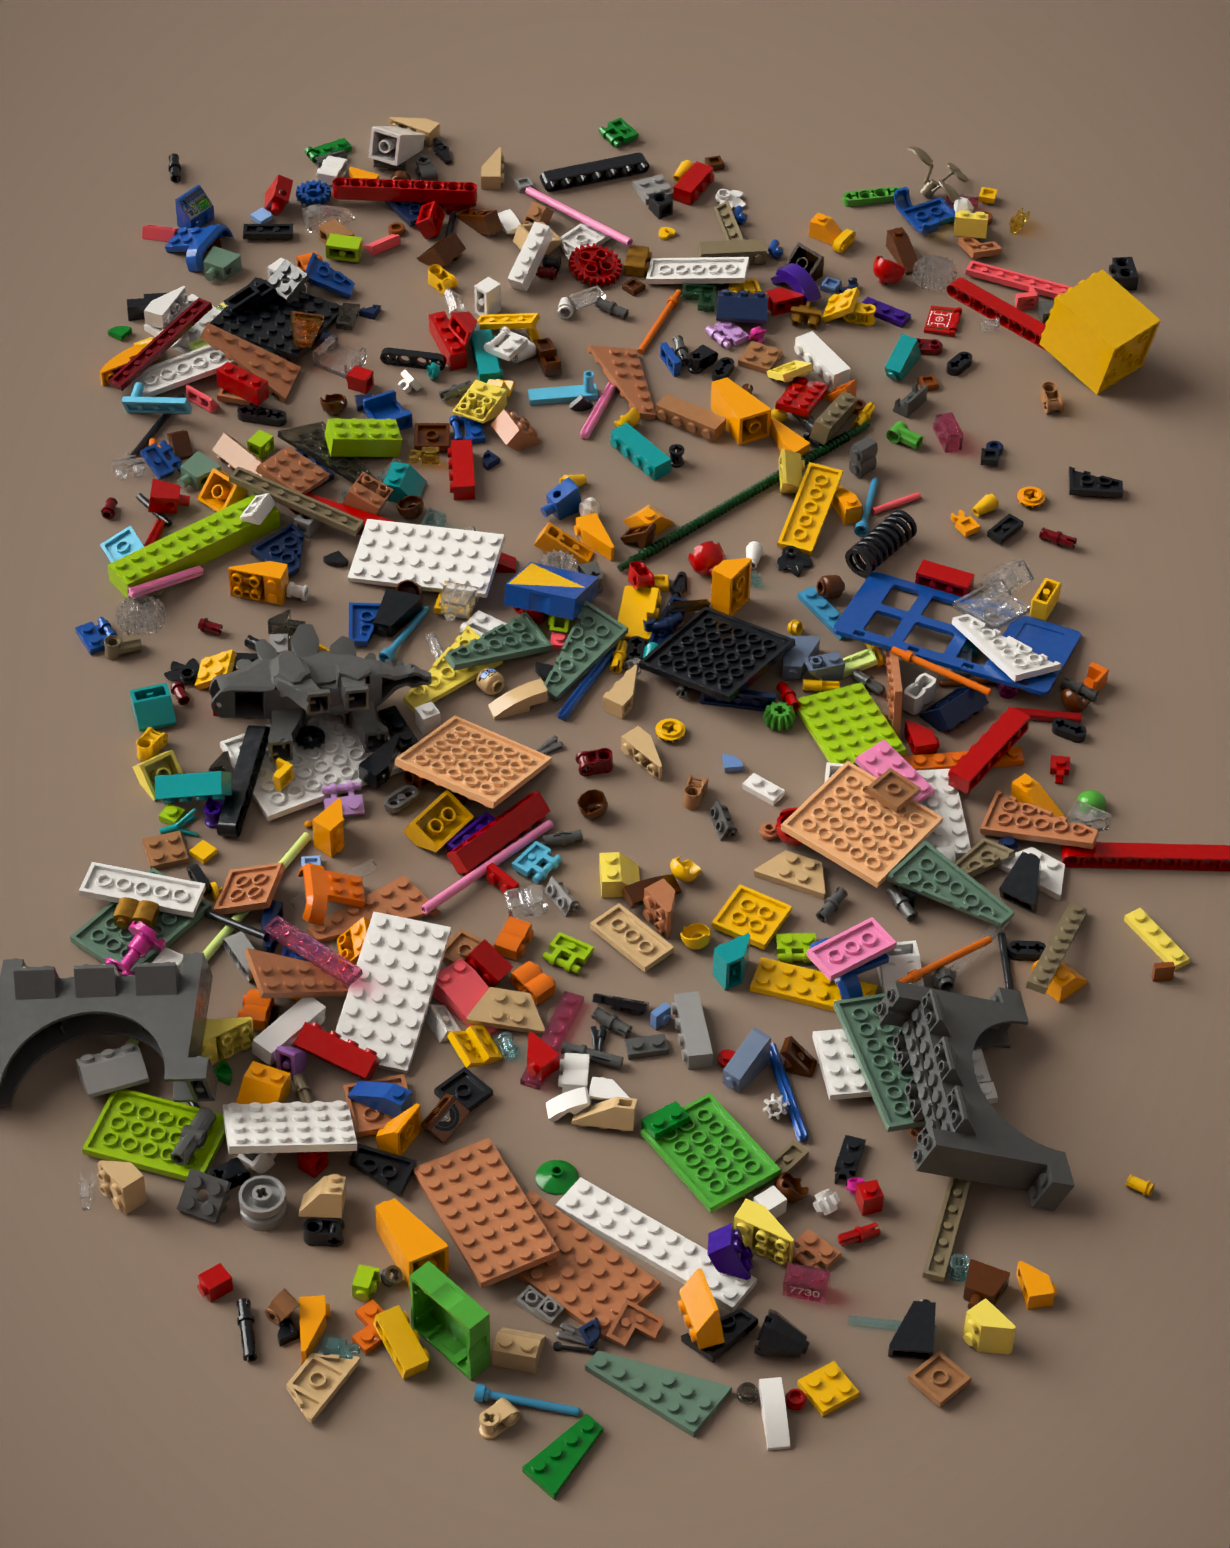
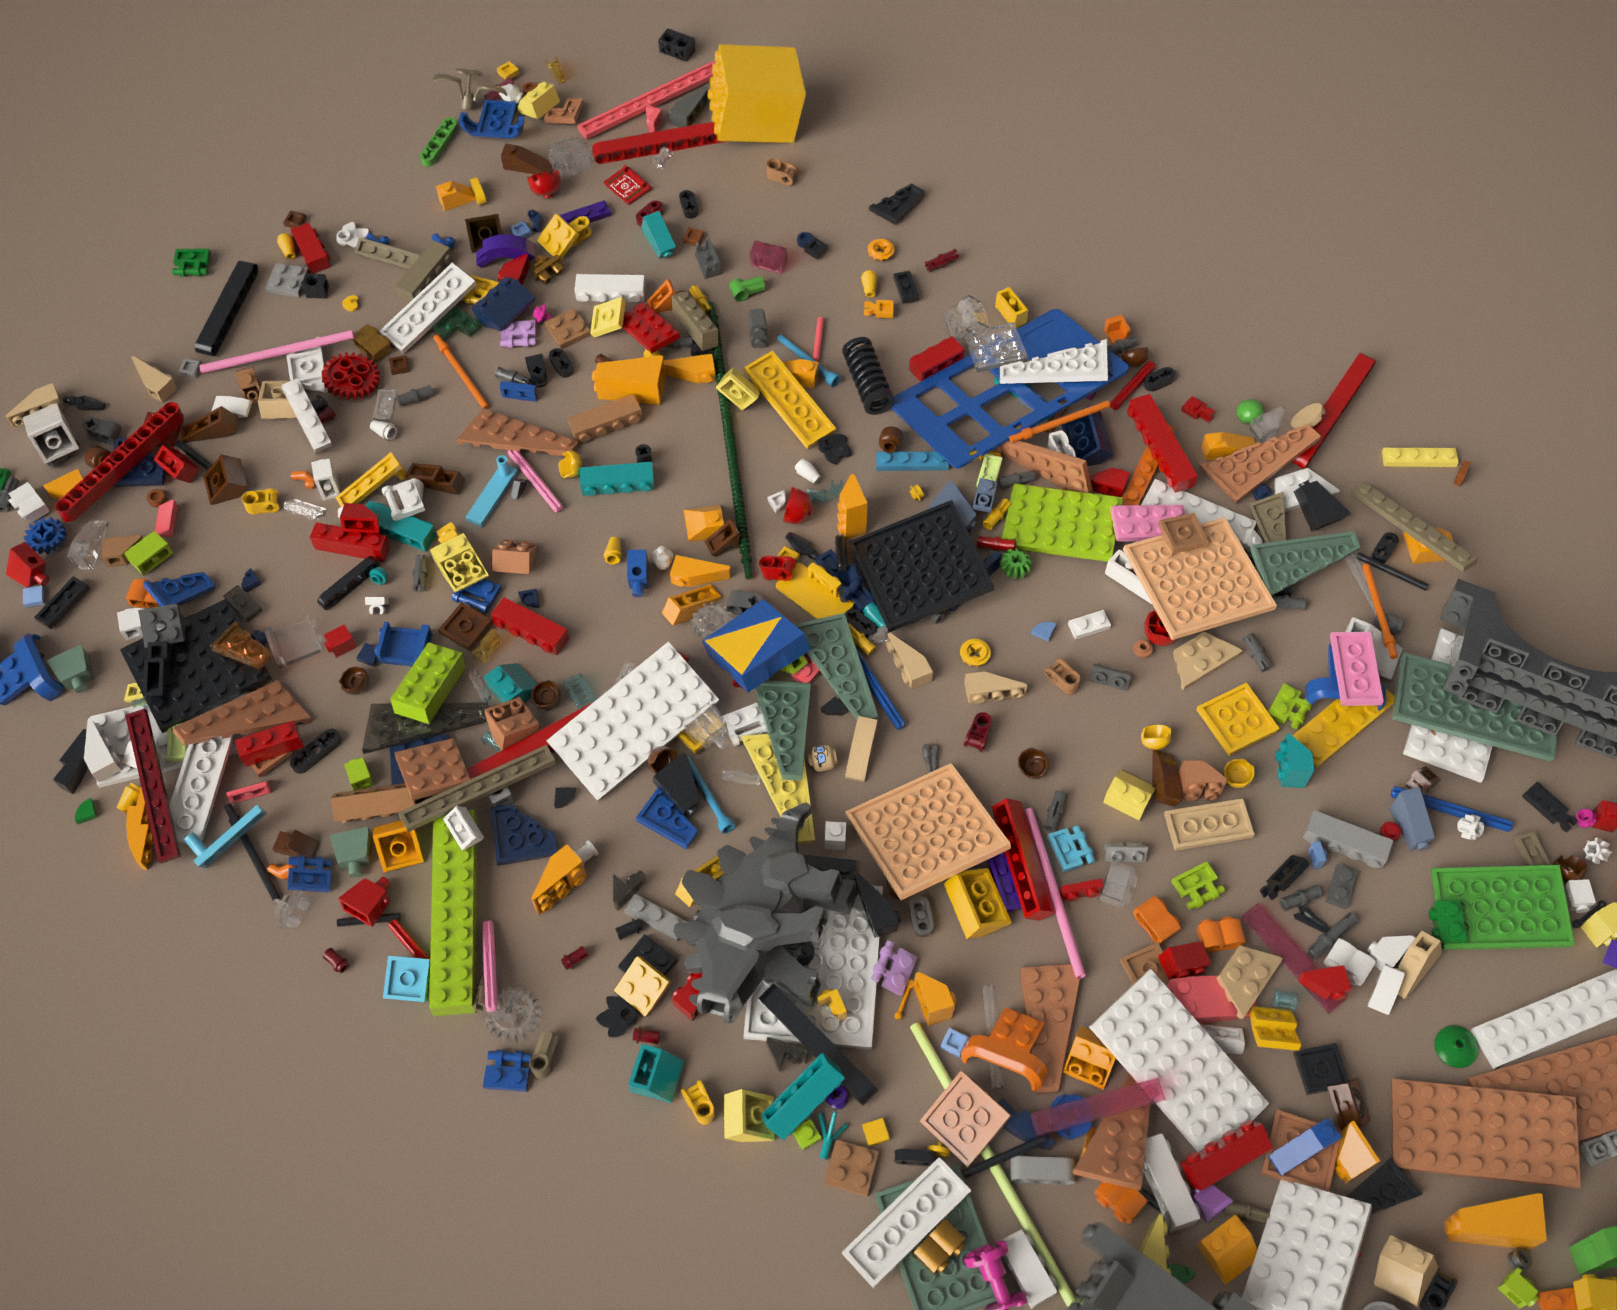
camera: 55 degrees left, 15 degrees up
(1117, 838) = (1309, 415): none -> tan tile

